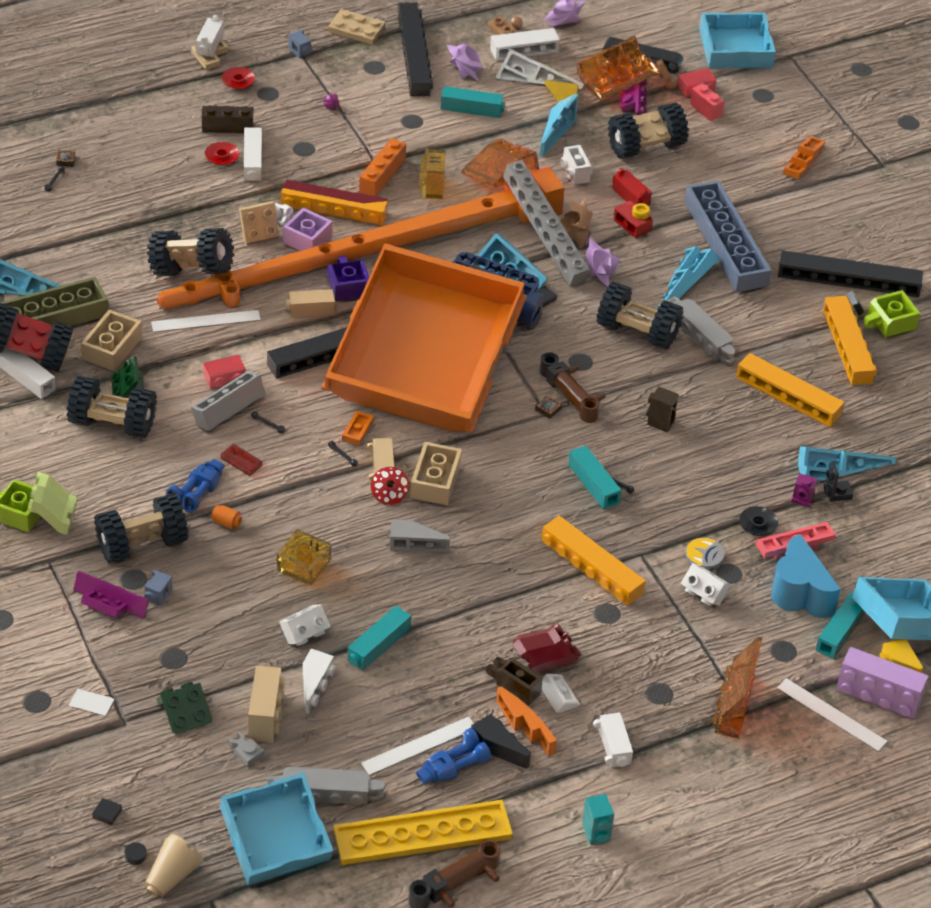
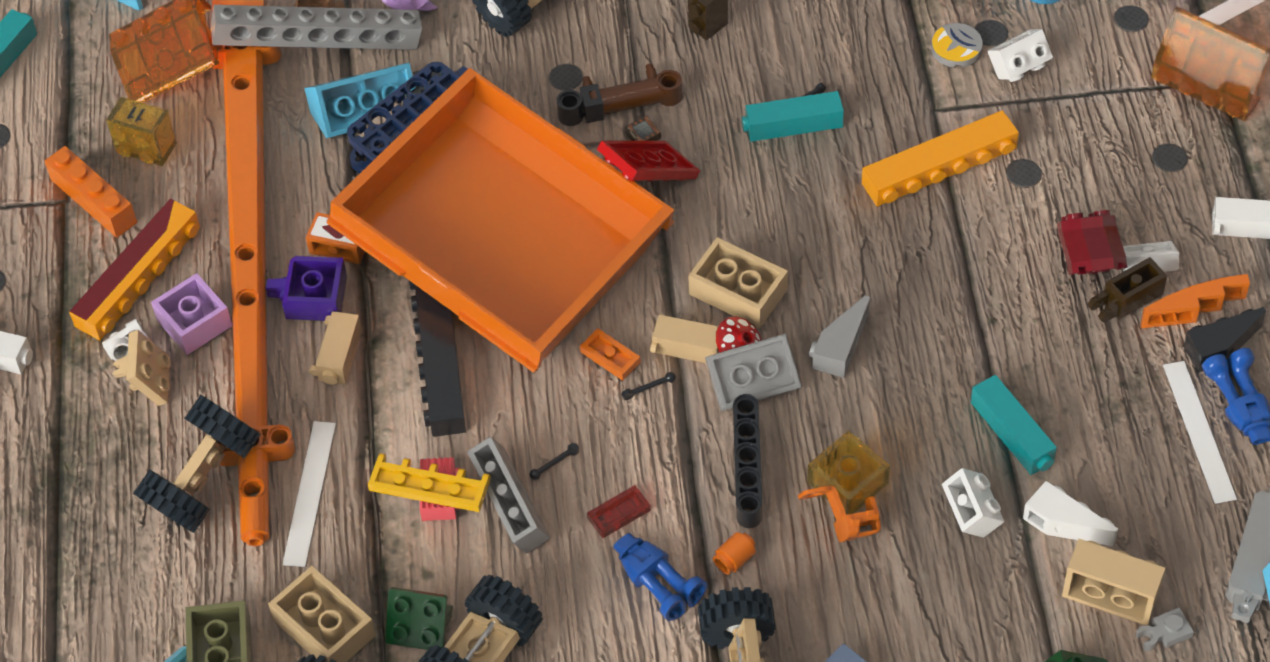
camera: 65 degrees left, 10 degrees up
(216, 357) = (428, 485): none -> yellow hinge
(264, 567) = (847, 526): none -> orange piece
(299, 509) = (749, 471): none -> black beam
(368, 496) = (753, 369): none -> light grey tile
(510, 402) = (647, 160): none -> red plate

